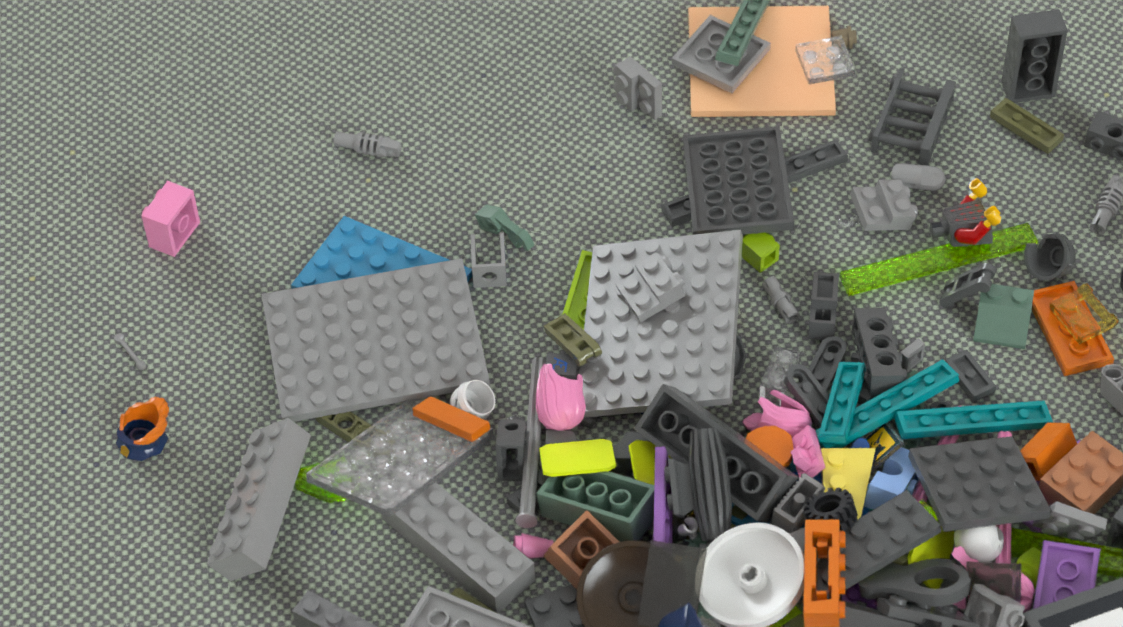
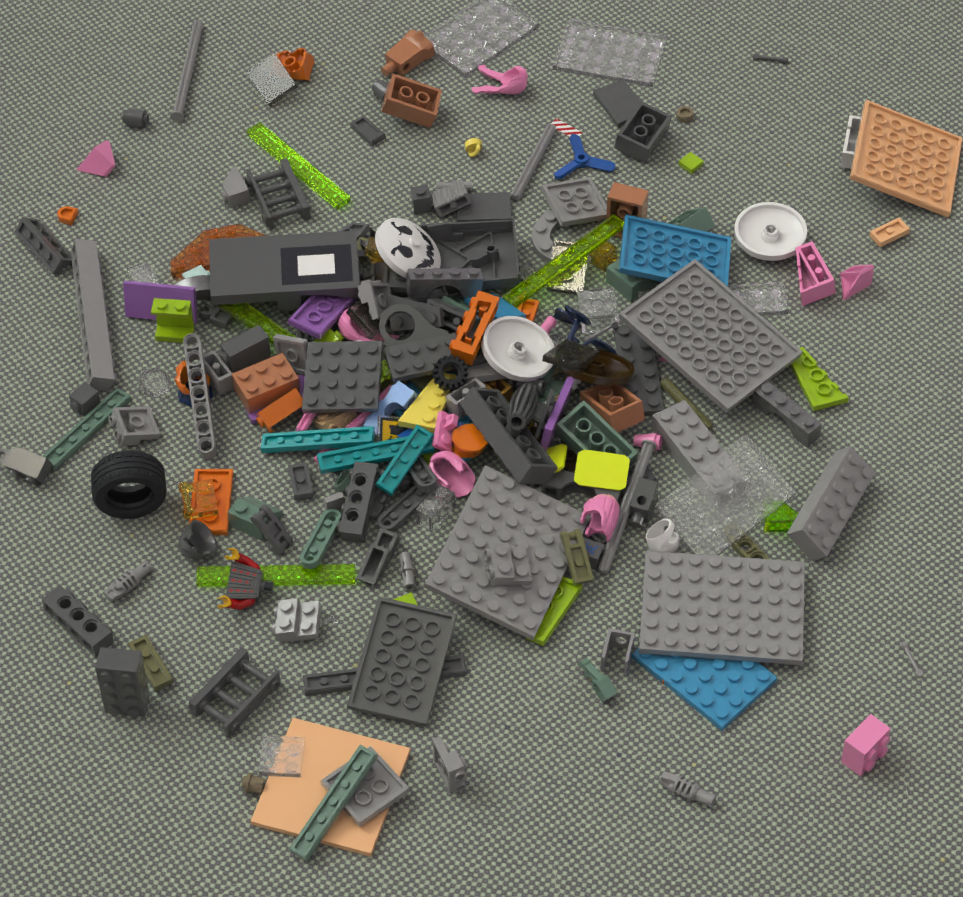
camera: 165 degrees left, 0 degrees up
(143, 429) = (909, 584): piece -> none
(451, 419) = (683, 519): orange tile -> none
(904, 301) = (320, 539): none -> sand green plate
(919, 176) = (259, 639): light grey arm -> none

